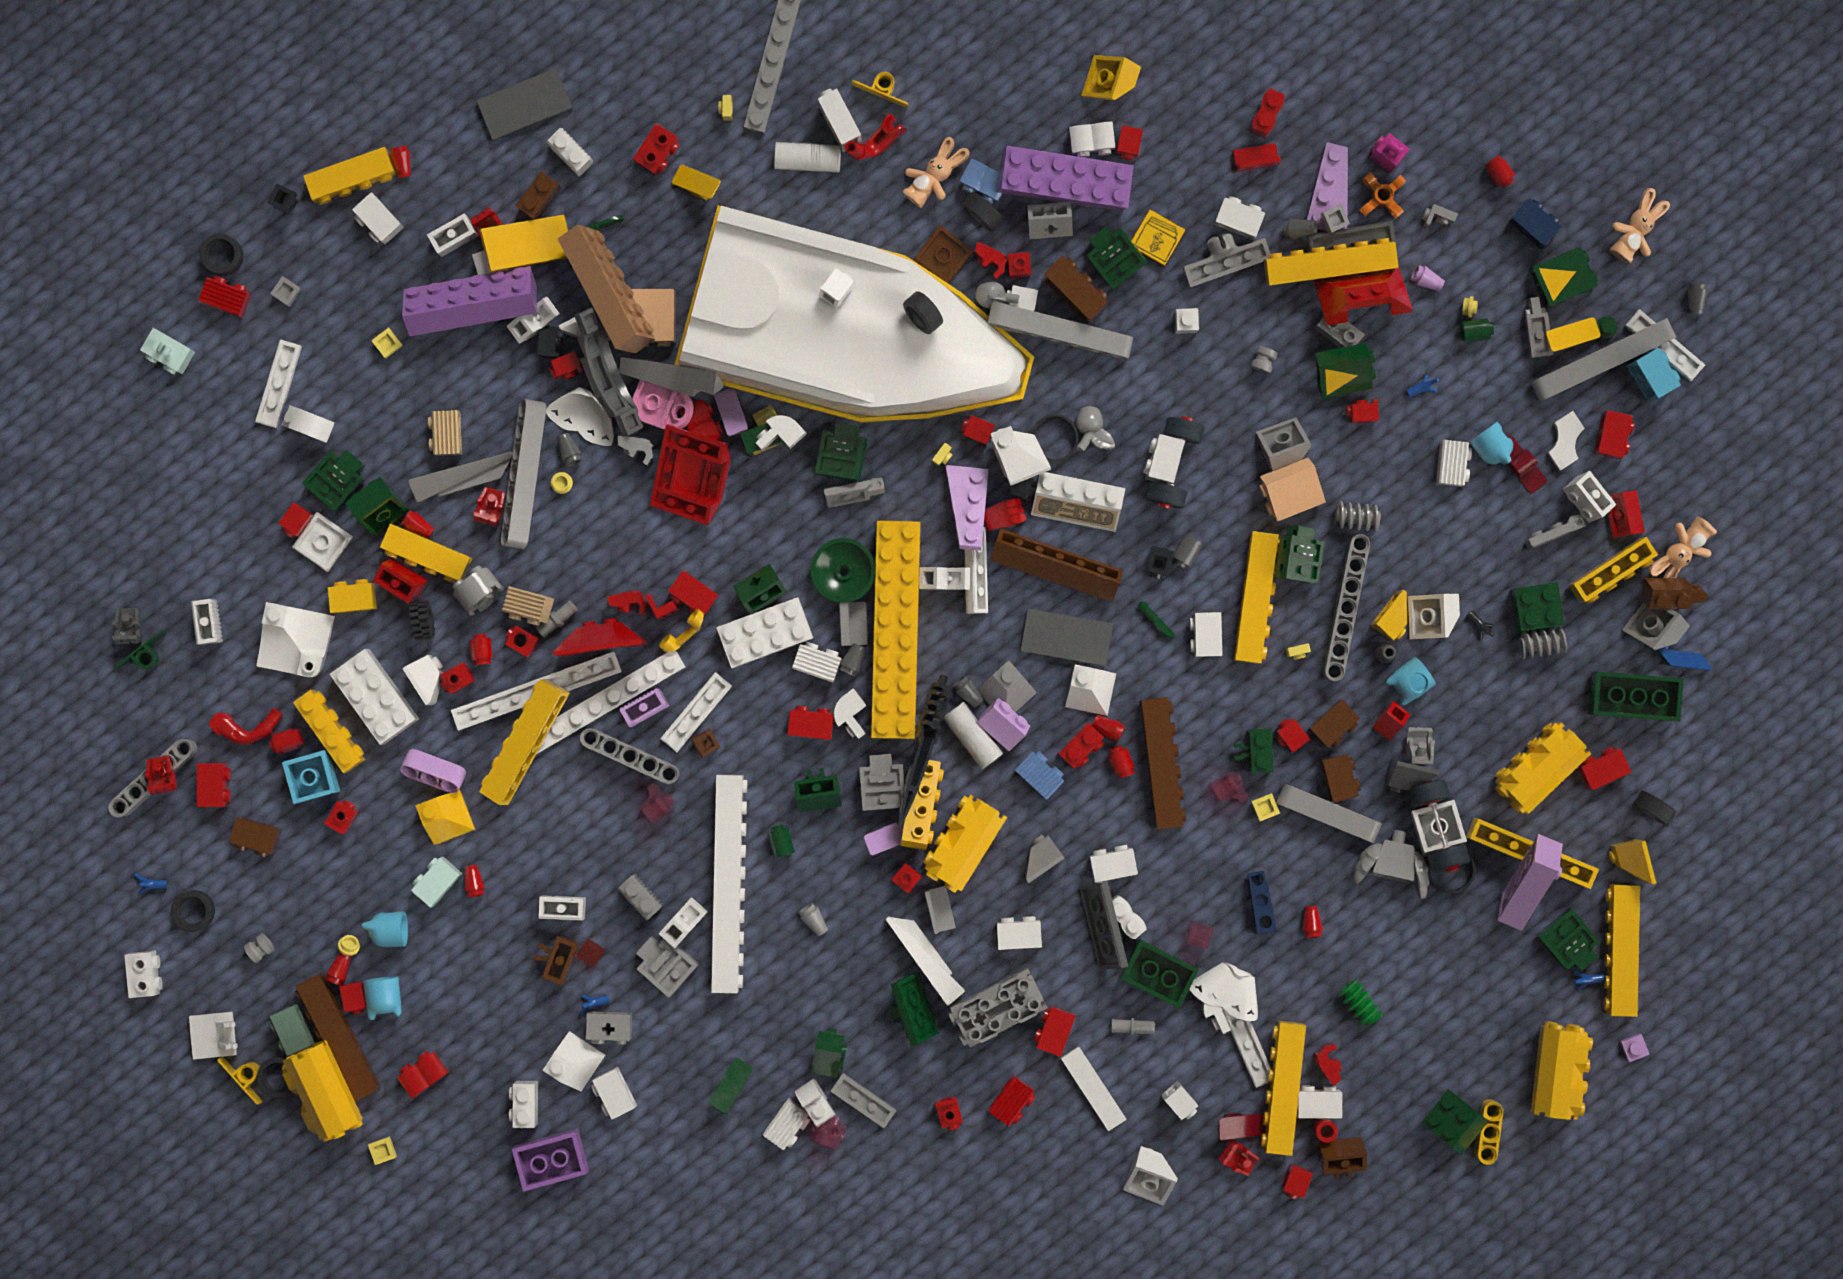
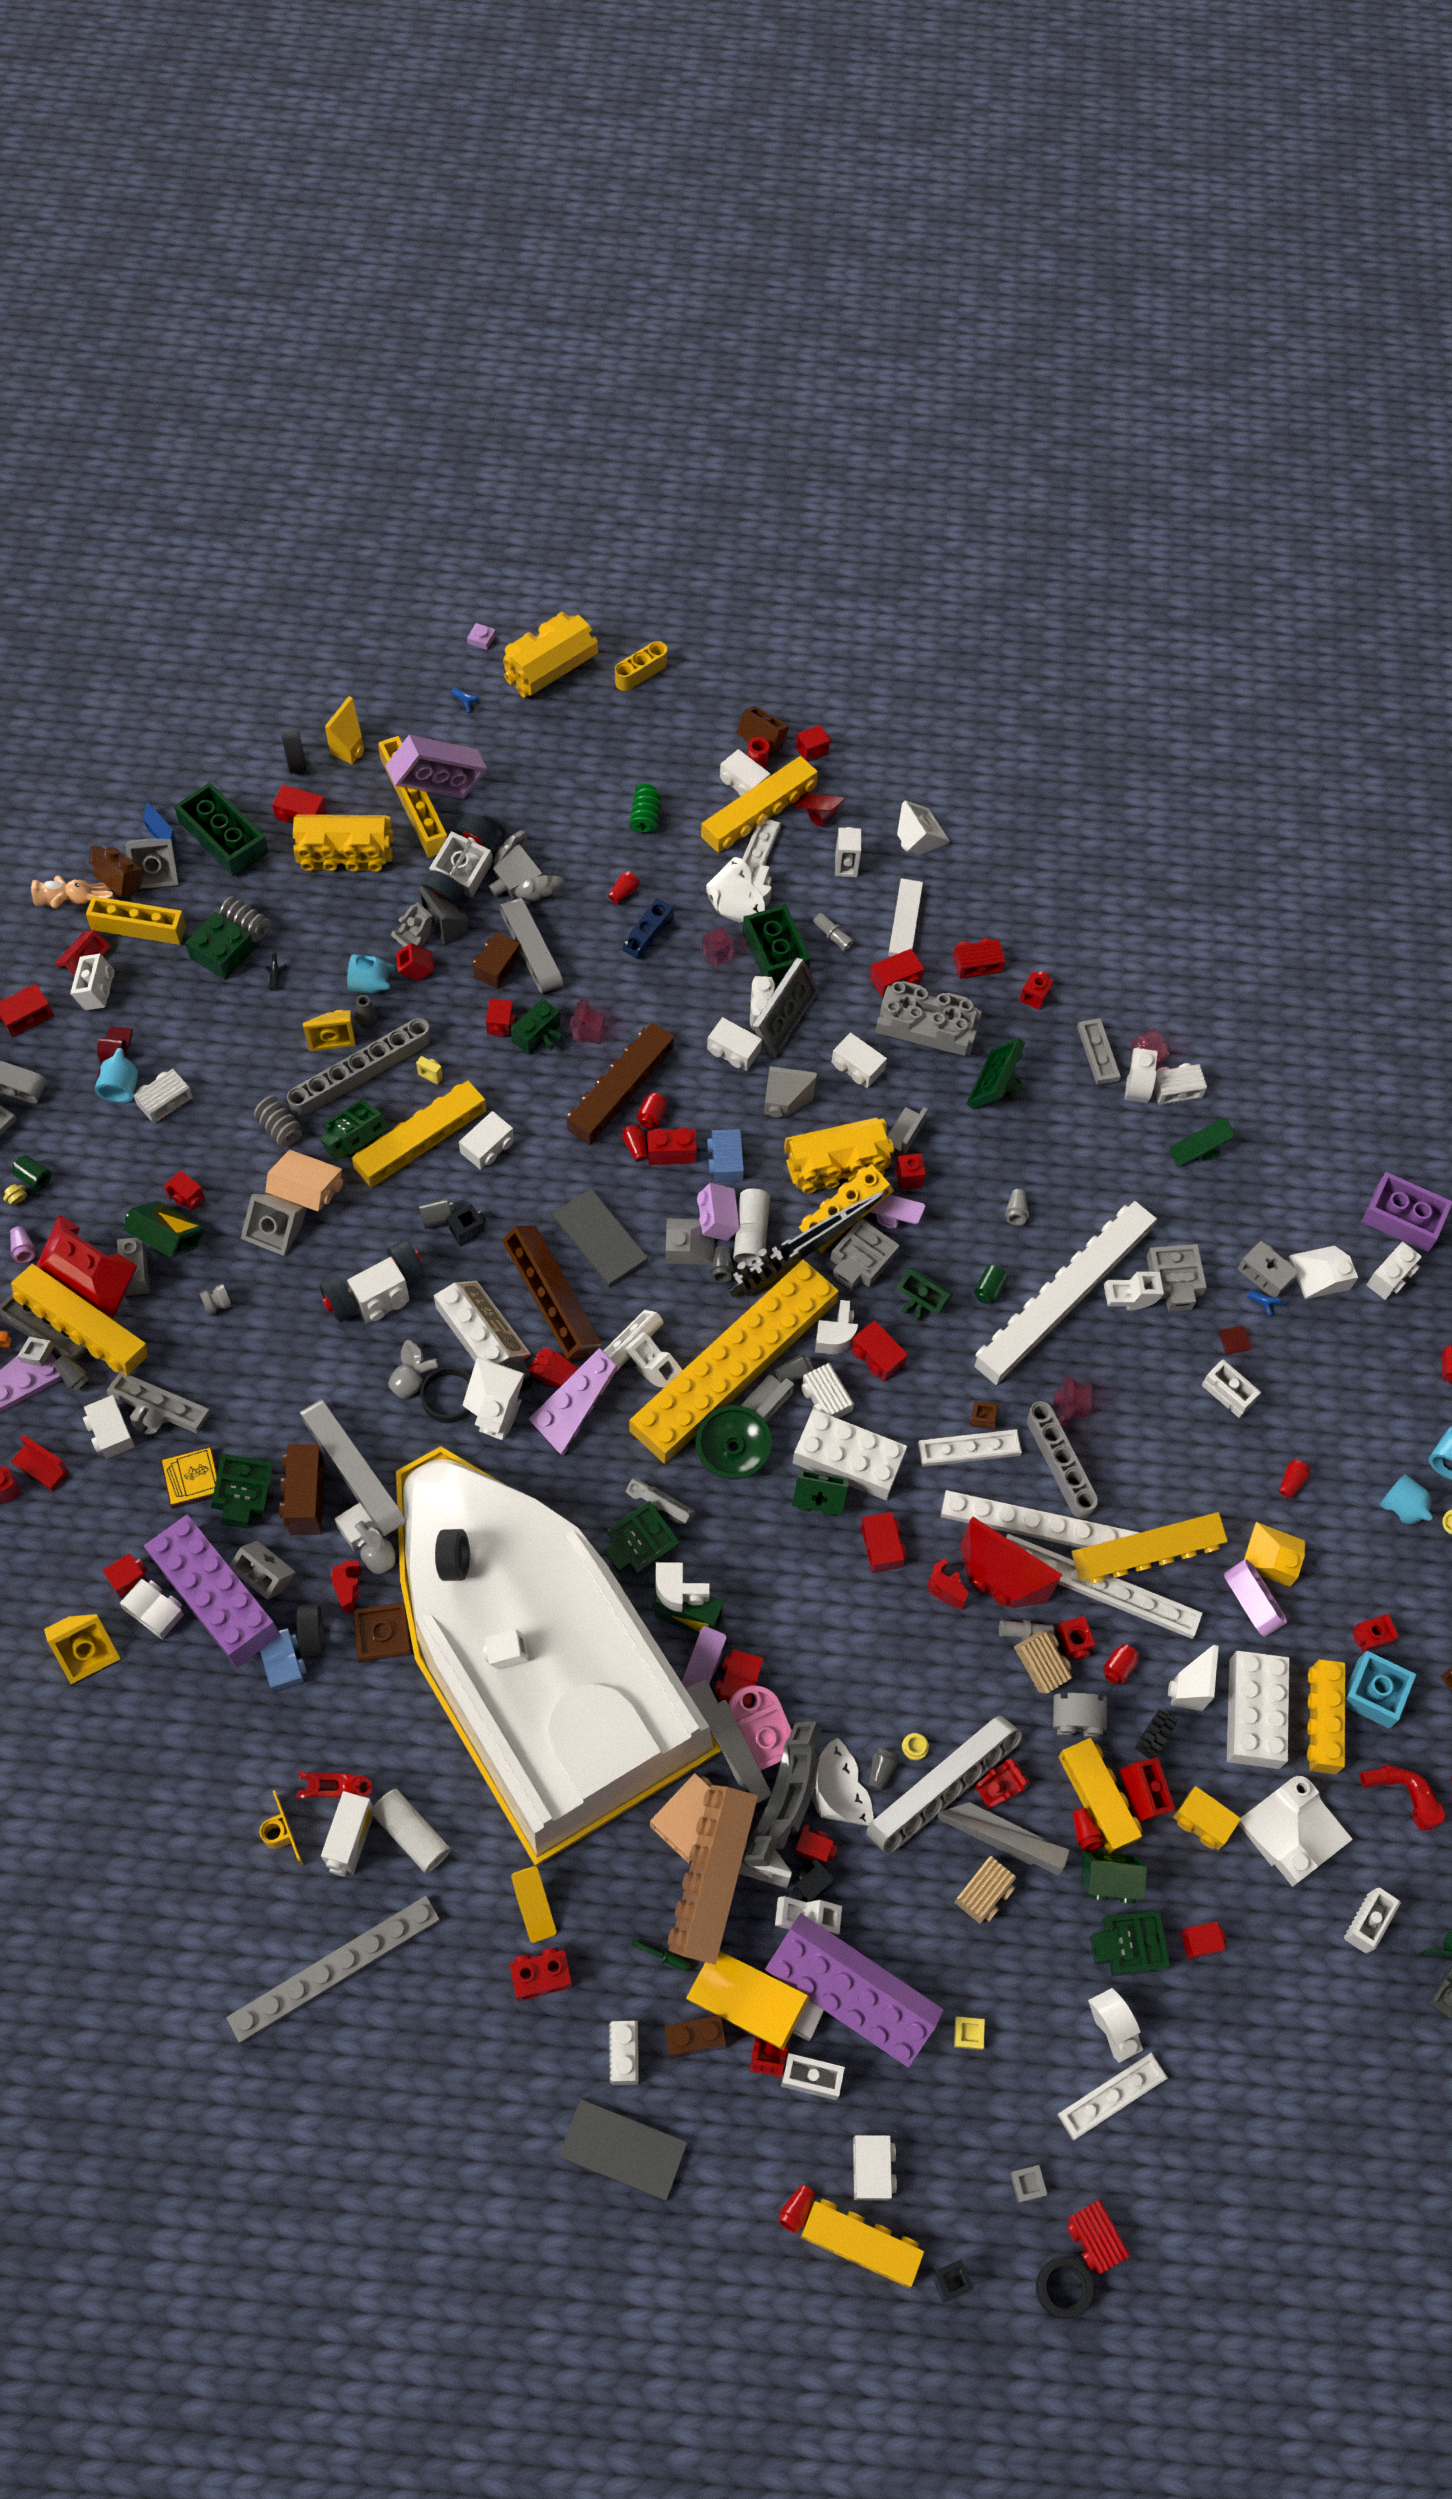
camera: 145 degrees left, 25 degrees down
(167, 351) = (1203, 2235): light aqua brick -> none
(286, 741) = (1376, 1744): red brick -> none
(322, 541) = (1192, 1899): white tile -> none
(436, 881) = (1329, 1504): light aqua brick -> none
(457, 678) = (1164, 1658): red brick -> none
(560, 959) = (1269, 1351): reddish brown brick -> none
(614, 1093) = (1307, 1218): white brick -> none
(634, 445) = (814, 1711): light grey hand -> none
(640, 896) = (1152, 1342): light grey brick -> none
(644, 707) = (1013, 1484): lavender brick -> none
(663, 611) = (921, 1546): red panel -> none
(671, 643) = (942, 1519): yellow bar -> none
(690, 475) = (793, 1640): red slope -> none
(726, 107) = (437, 1952): light yellow plate -> none
(764, 414) = (675, 1634): light yellow plate -> none
(829, 1053) = (1097, 1099): dark green brick -> none
(926, 958) = (950, 1103): white wedge -> none
(936, 171) = (310, 1707): light nougat animal -> none
(943, 455) = (555, 1463): light yellow plate -> none
(977, 430) = (504, 1455): red brick -> none
(1019, 265) = (326, 1556): red brick -> none
(1090, 690) = (621, 1184): white slope -> none
(1157, 622) = (516, 1177): dark green piece -> none
(1186, 321) = (242, 1384): white brick -> none
(1238, 1157) = (844, 788): red hand -> none
(1265, 807) = (574, 988): light yellow plate -> none
(1329, 1067) = (710, 799): red hand -> none
(1334, 724) = (459, 998): reddish brown brick -> none
(1423, 386) = (119, 1171): blue bar -> none
(1432, 615) = (300, 1003): white slope -> none
(1455, 1121) = (659, 683): dark green brick -> none
(1556, 531) = (144, 982): light grey hinge -> none
(1567, 431) = (53, 1045): white tile -> none
(1569, 941) = (451, 723): dark green piece -> none
(1622, 950) = (419, 693): yellow brick -> none

